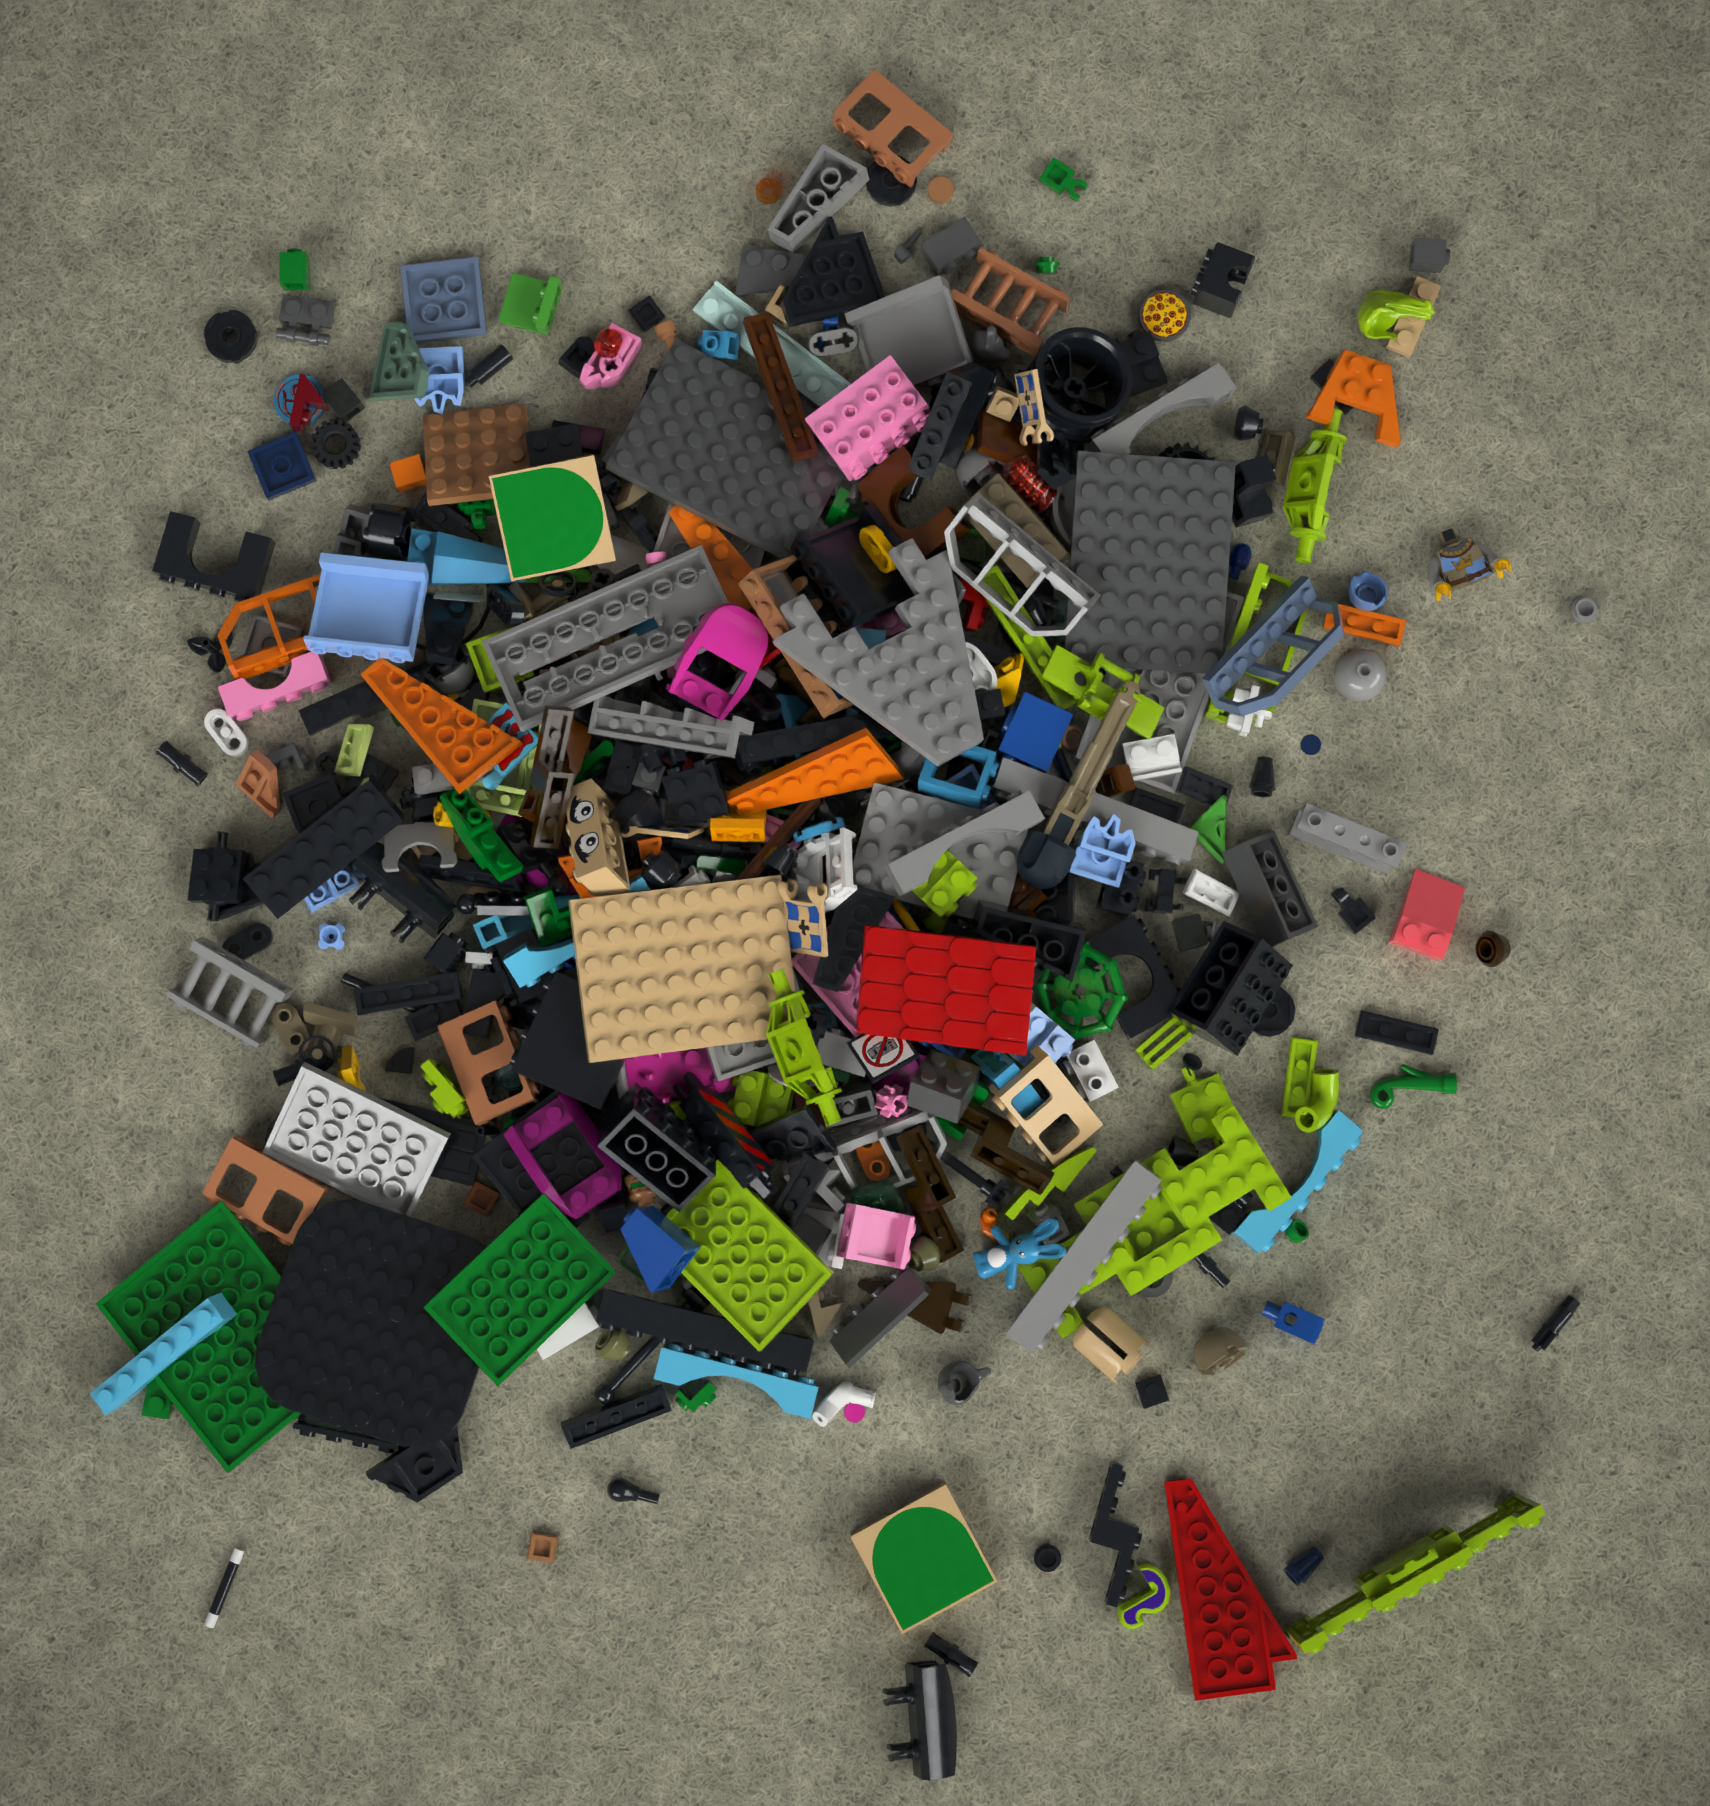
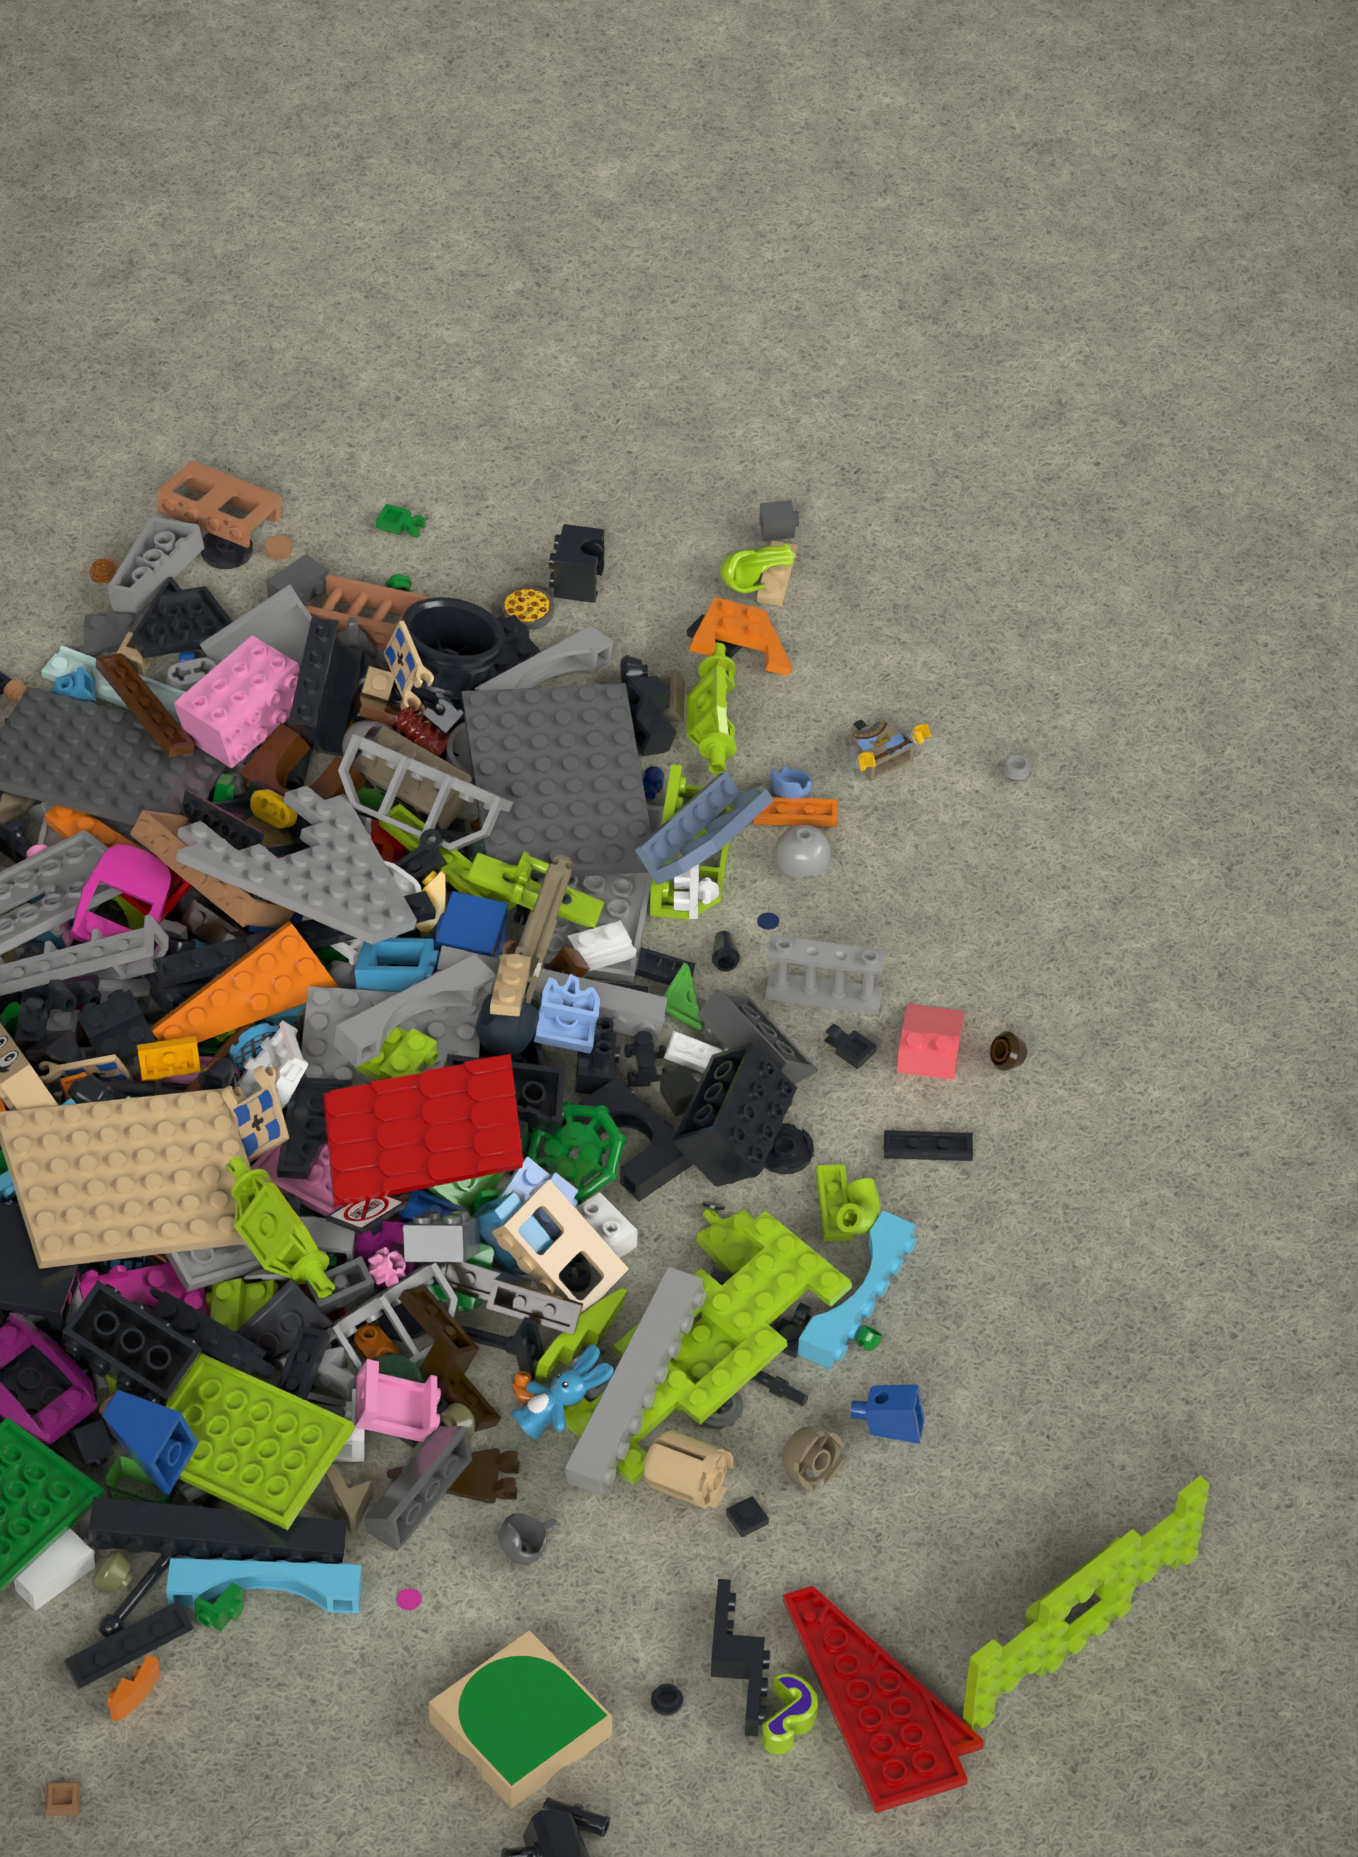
camera: 15 degrees left, 35 degrees down
(605, 1467) = (132, 1693): none -> orange slope
(623, 1490) = (148, 1720): black piece -> none
(838, 1398) = (388, 1579): white arm -> none
(902, 253) = (250, 597): dark grey hand -> none
(1004, 644) = (424, 858): none -> black hinge
(1054, 836) = (510, 985): none -> tan plate
(1146, 1057) = (701, 1186): lime tile -> none
(1303, 1566) = (958, 1654): dark blue cone -> none
(1415, 1080) = (960, 1183): green plant -> none
(1555, 1324) = (1177, 1376): black piece -> none

